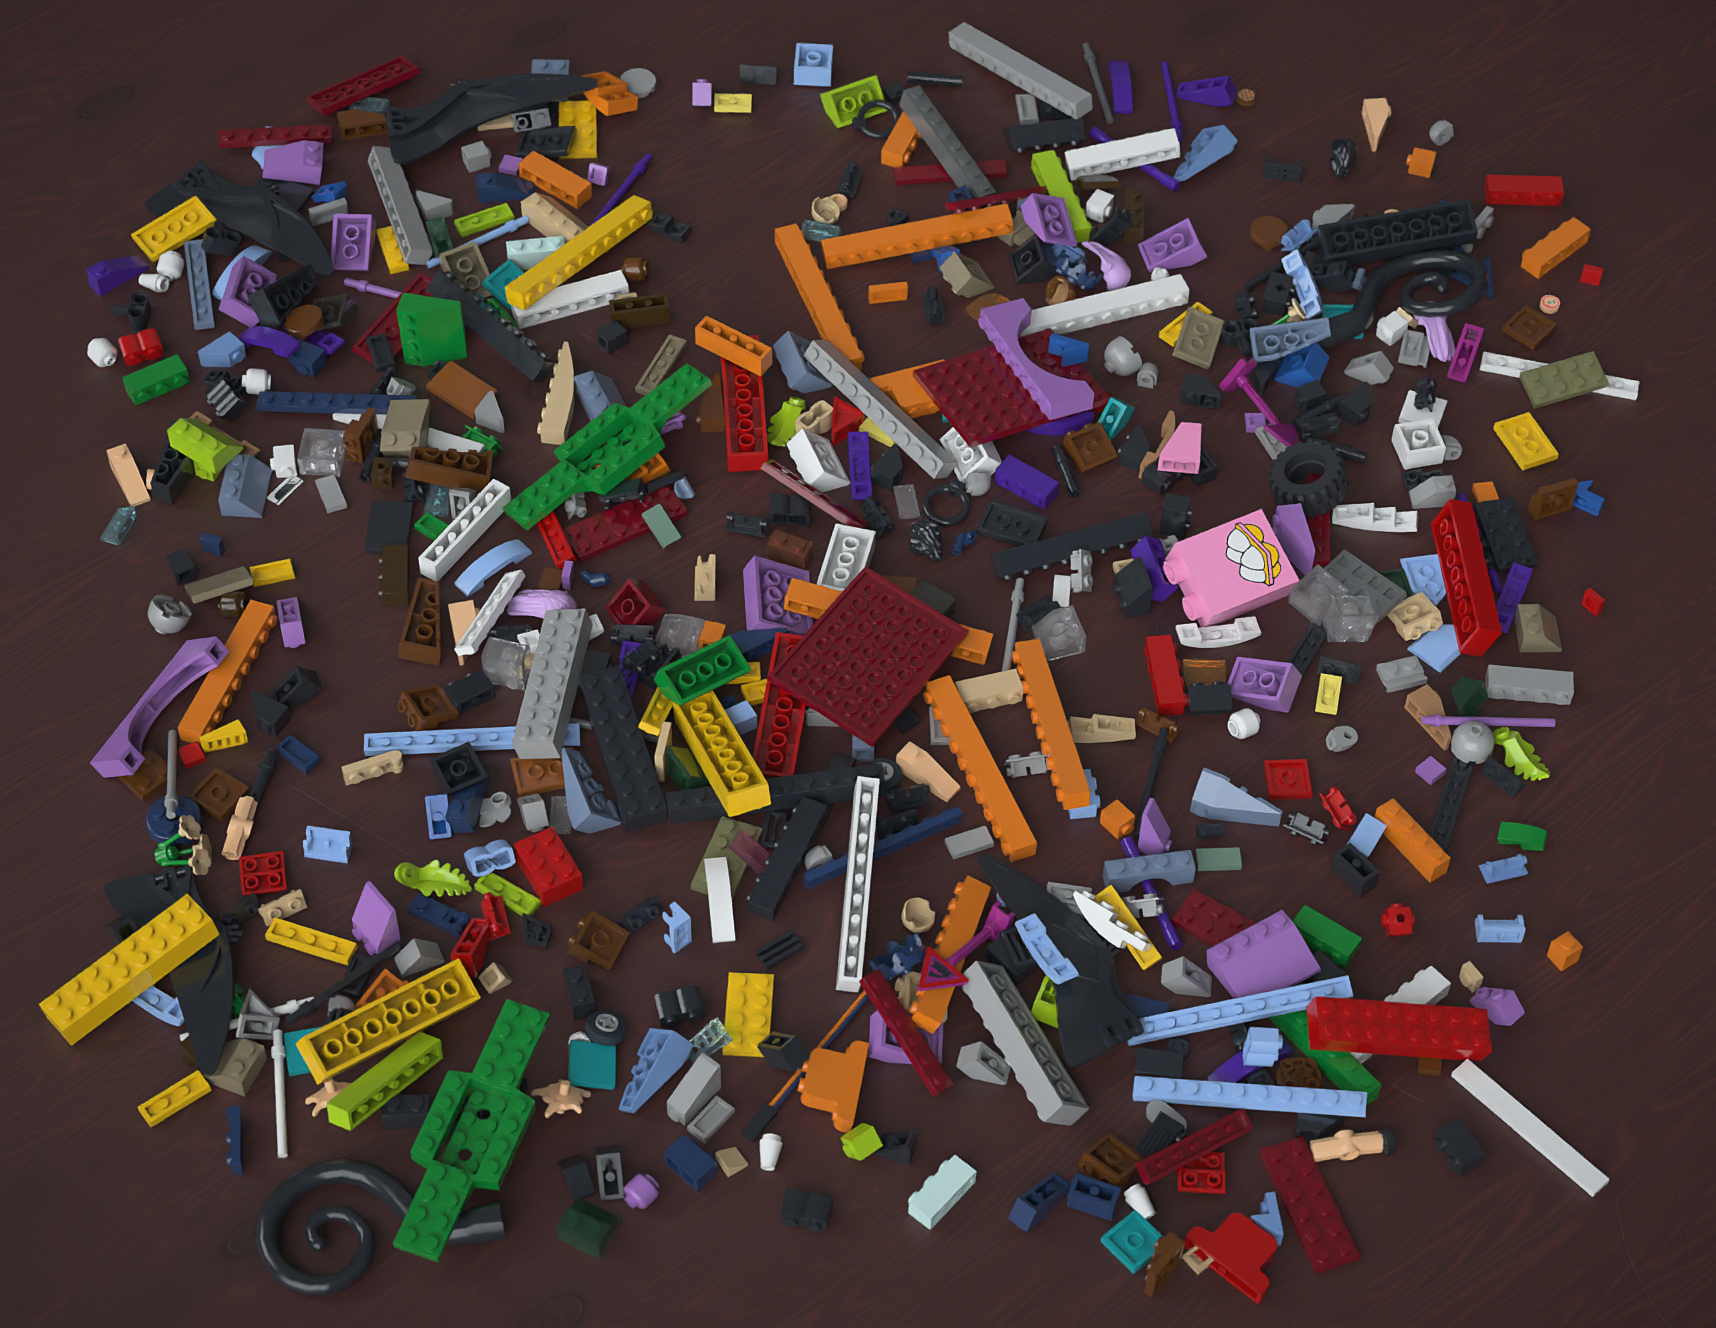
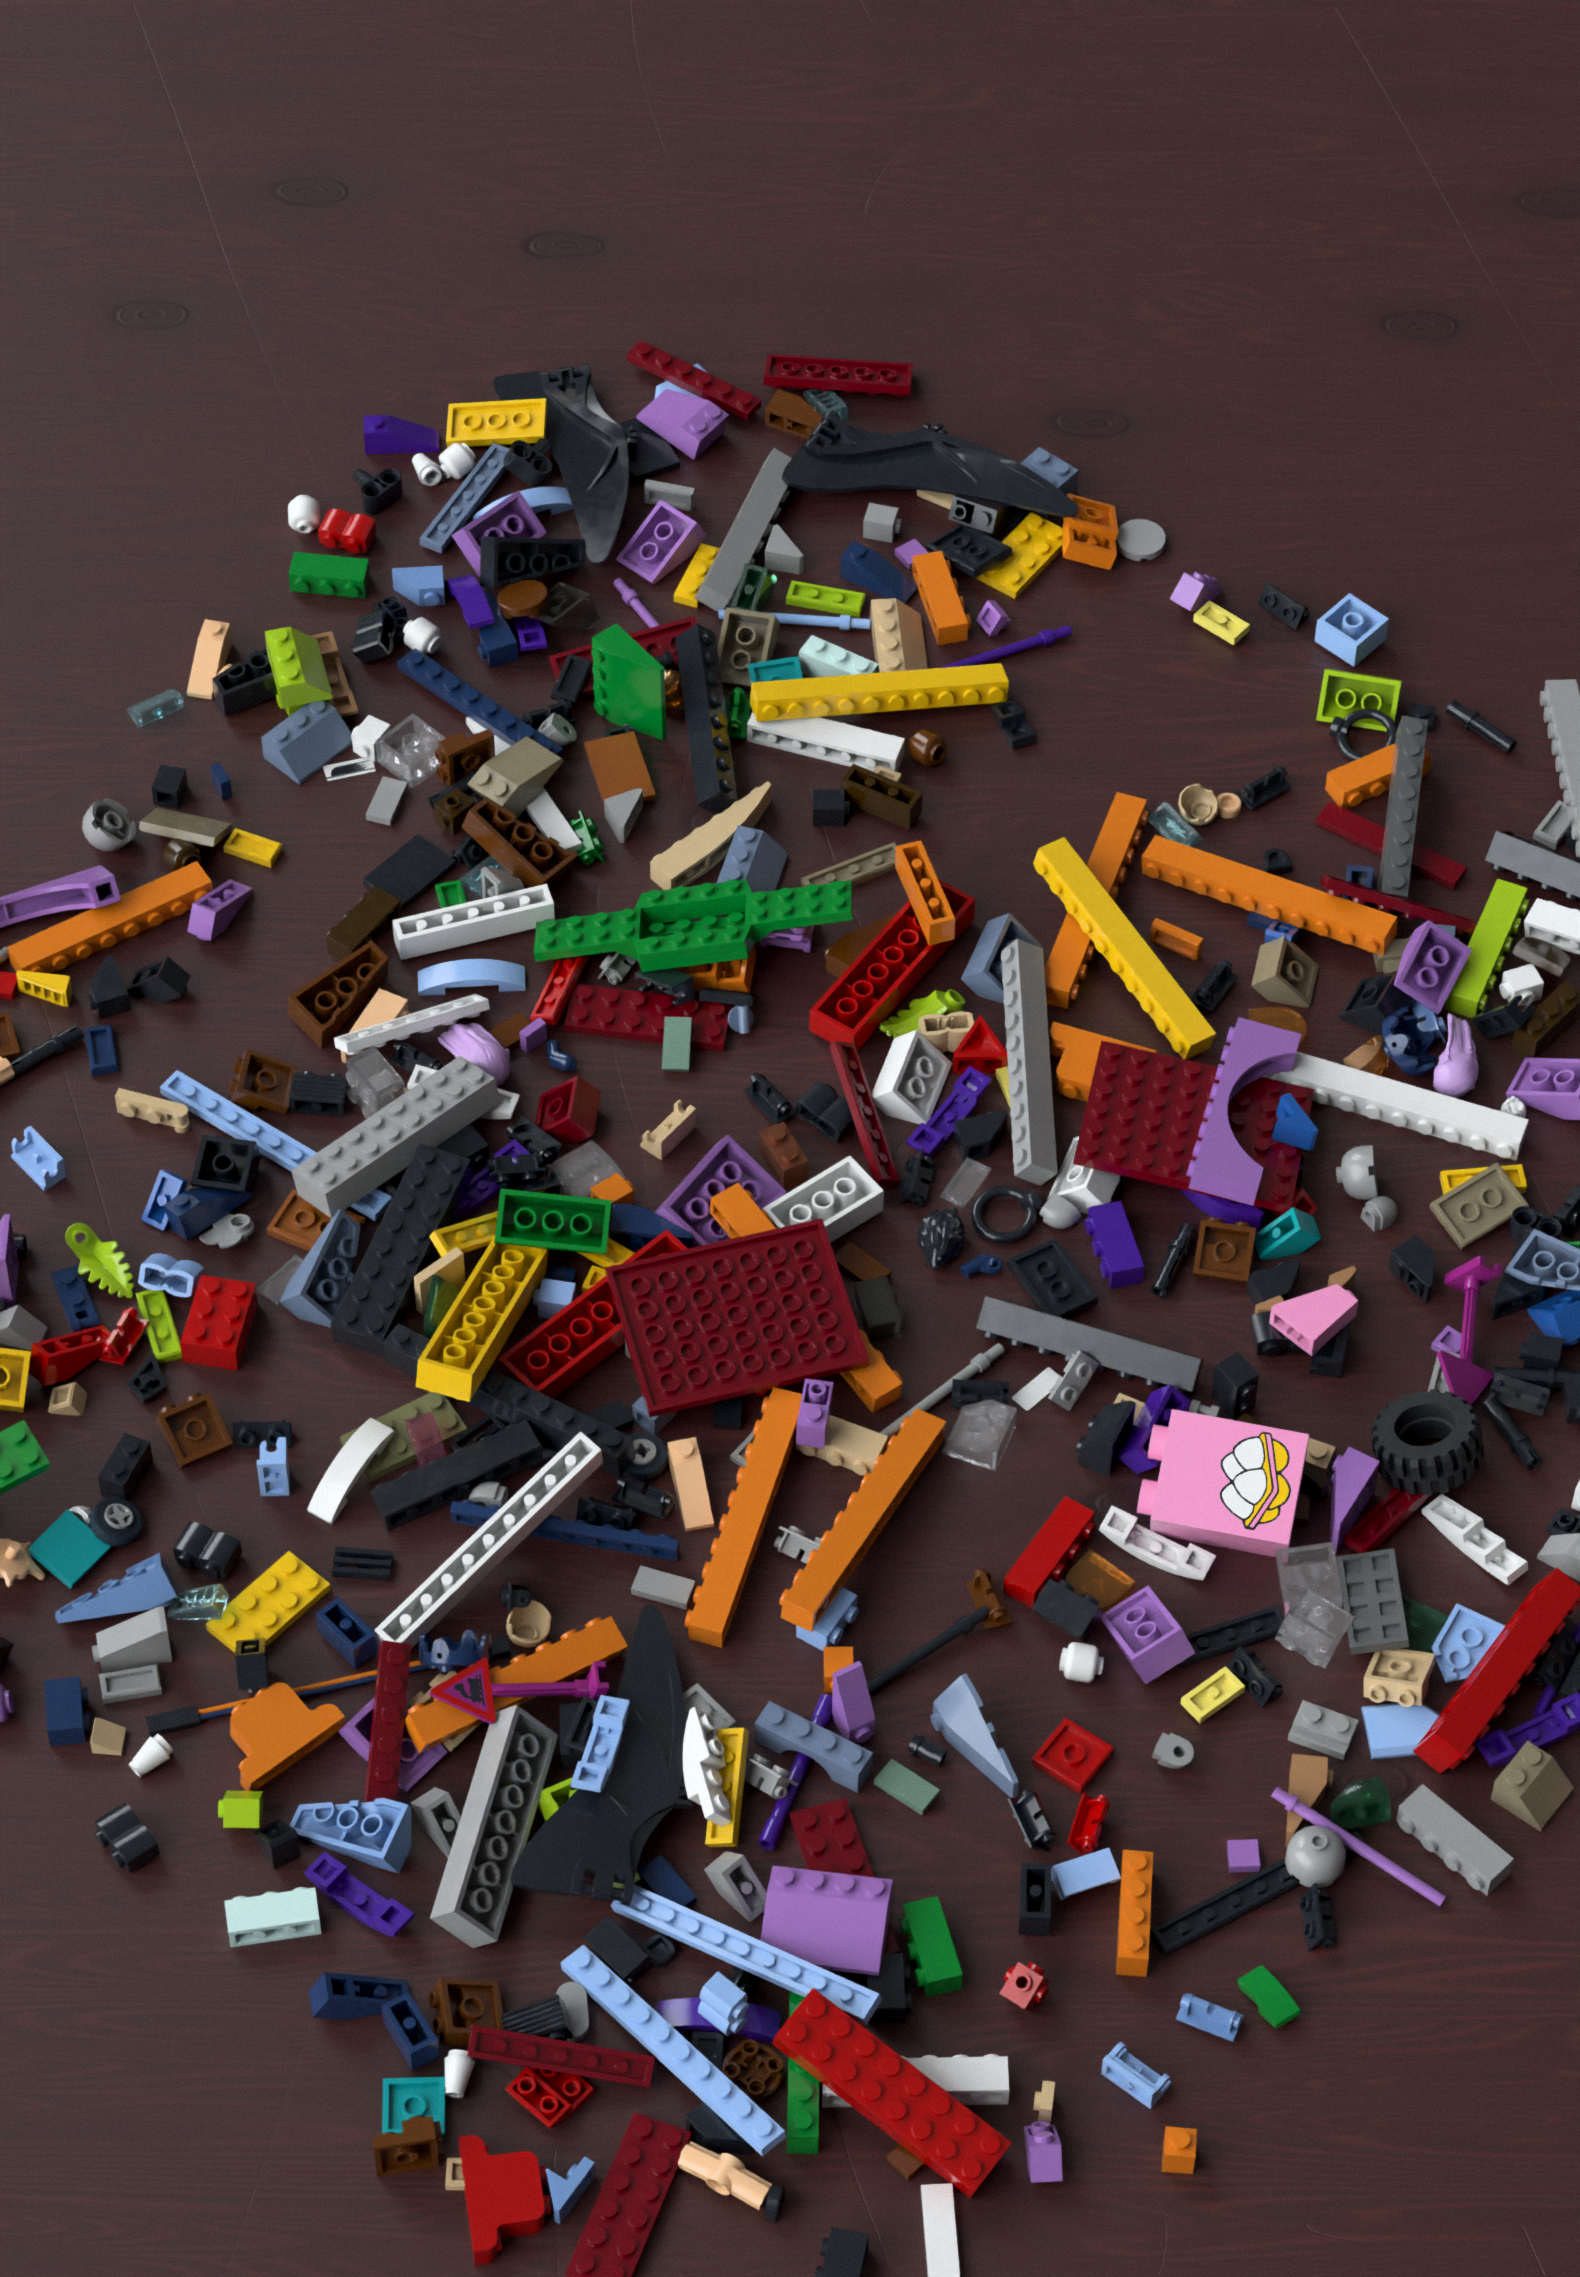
camera: 40 degrees right, 0 degrees up
(330, 192) = (690, 476): blue slope -> none
(533, 812) = (259, 1257): light grey slope -> none
(817, 994) = (346, 1633): none -> dark blue brick
(870, 312) = (1124, 949): none -> yellow brick
(897, 904) = (514, 1596): none -> black hinge
(944, 1103) = (361, 1830): none -> medium blue wedge
(968, 681) = (814, 1413): none -> medium lavender slope
(981, 1145) = (356, 1898): none -> dark purple slope
(1101, 729) = (917, 1561): tan slope -> none
(1519, 754) = (1363, 1909): lime plant -> none

